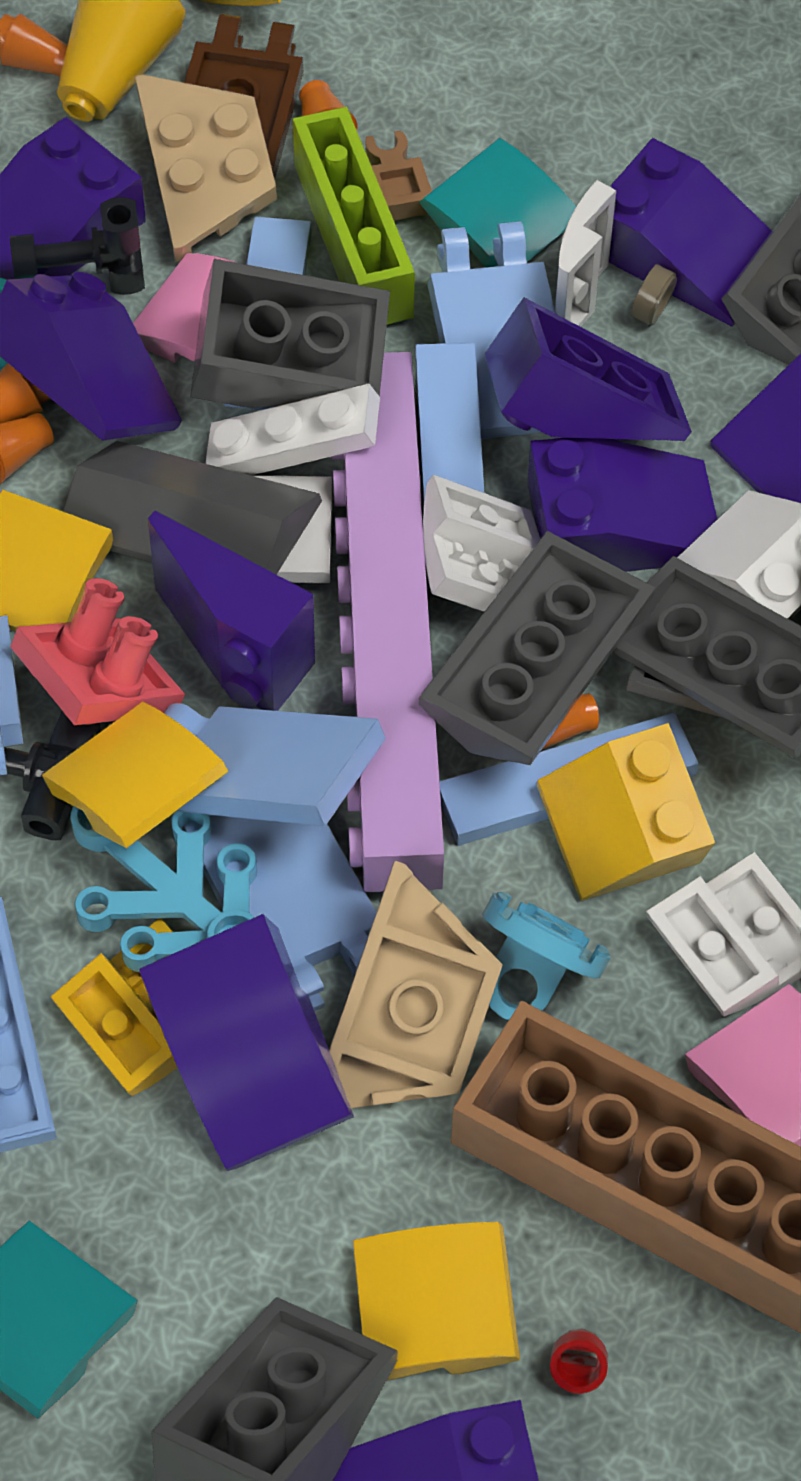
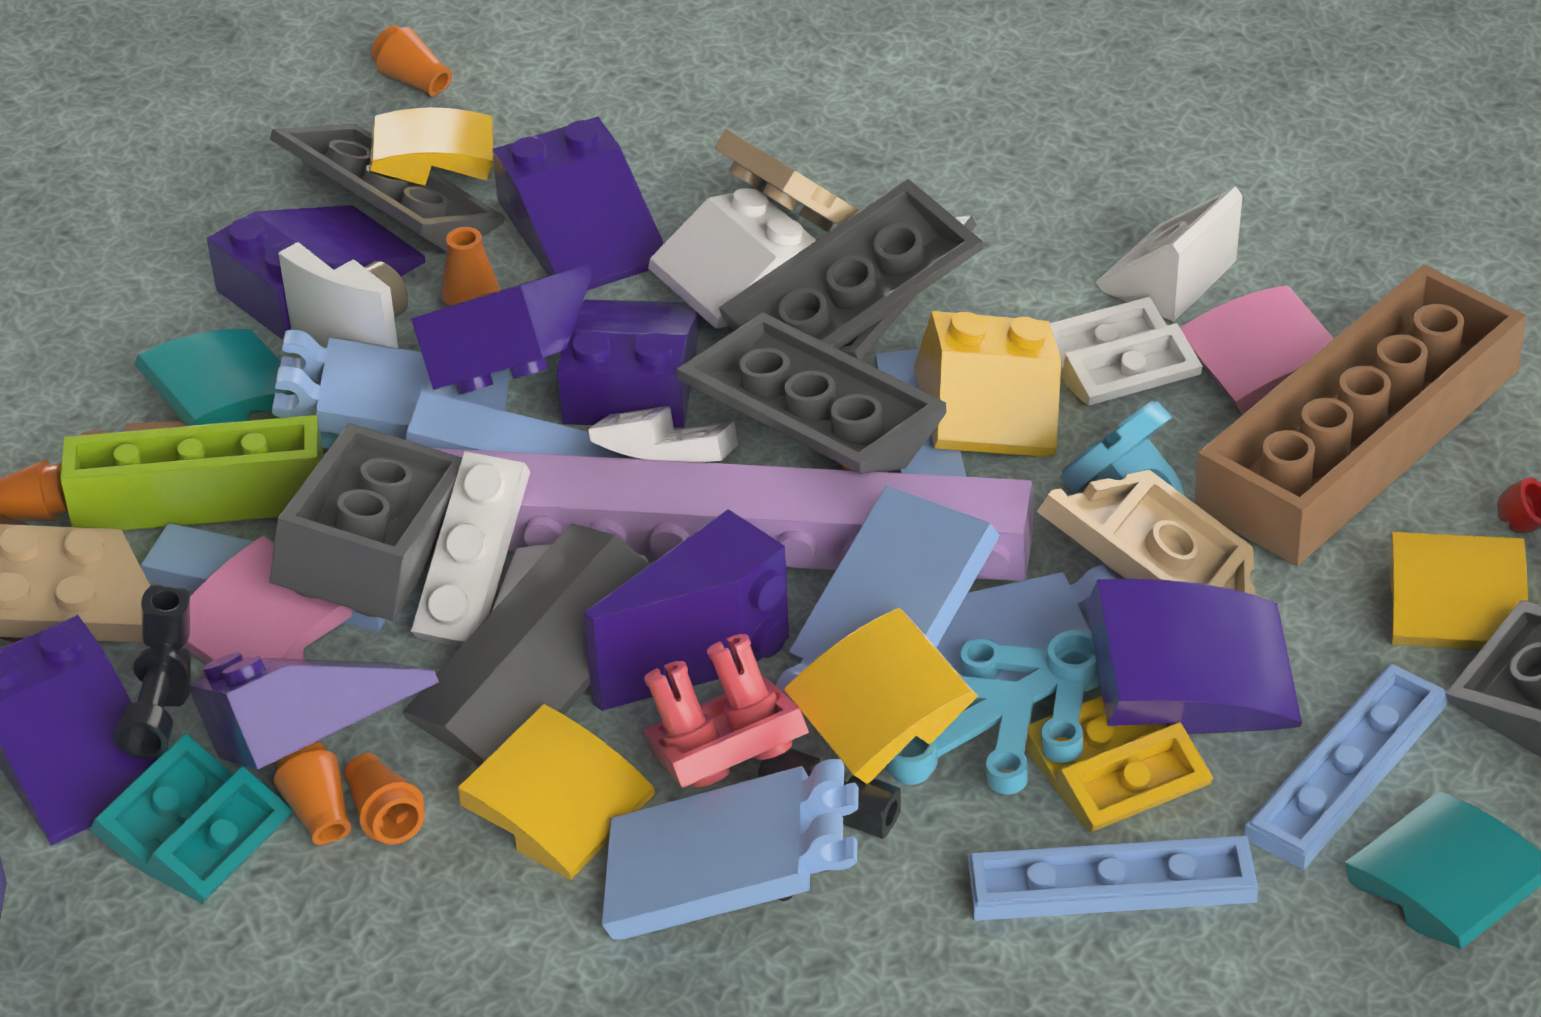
camera: 75 degrees left, 15 degrees down
(174, 1216) = (1346, 766): none -> light blue tile
(691, 353) = (466, 267): none -> orange cone

